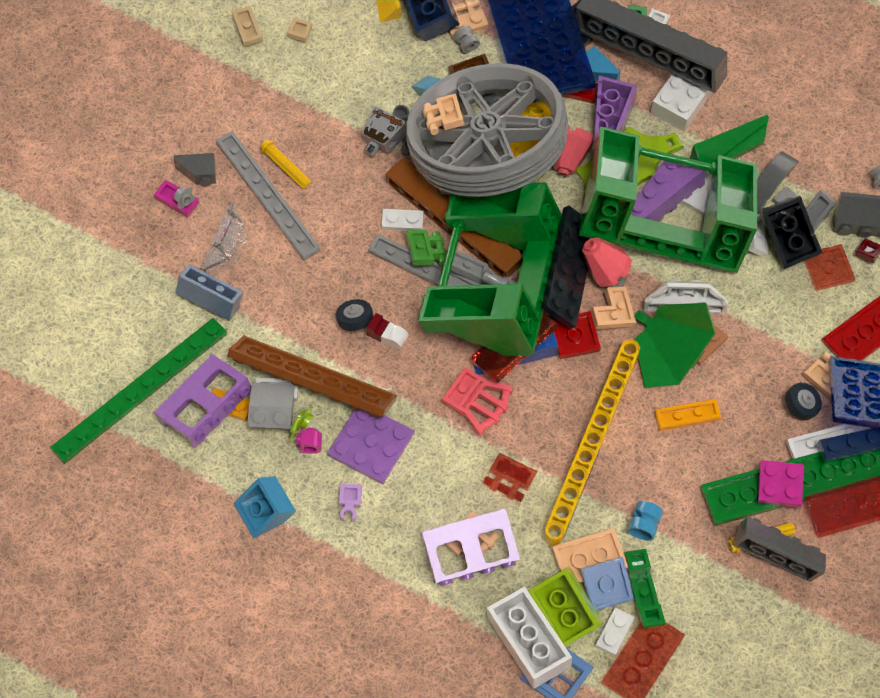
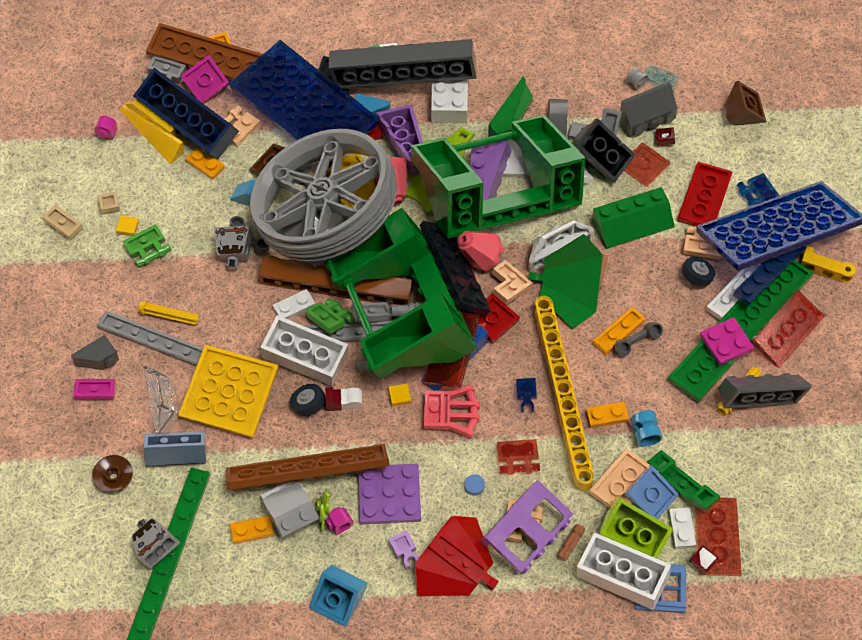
camera: 30 degrees left, 5 degrees down
(136, 365) = (152, 542): none -> light grey torso
(140, 276) = (112, 465): none -> reddish brown dish
(184, 197) = (102, 383): light grey plate -> none
(195, 390) = (217, 533): medium lavender window -> none
(290, 267) = (228, 391): none -> yellow plate
(302, 61) = (127, 225): none -> yellow tile
(307, 84) = (145, 241): none -> bright green plate
(379, 267) = (304, 350): none -> white brick
(386, 536) = (454, 561): none -> red panel
(411, 39) = (205, 163): none -> light orange plate
(441, 358) = (399, 395): none -> yellow tile
(449, 112) = (285, 197): light nougat plate -> none
(452, 480) = (474, 485): none -> medium blue tile
(466, 38) = (251, 140): light grey wheel -> none
(503, 583) = (571, 542): none -> nougat axle
(558, 421) = (526, 391): none -> clear blue plate
(612, 672) = (704, 559): none -> tile
(620, 487) = (607, 414): none -> light orange plate
(718, 431) = (651, 329): none -> dark grey bar
(778, 314) = (633, 218): none -> green slope

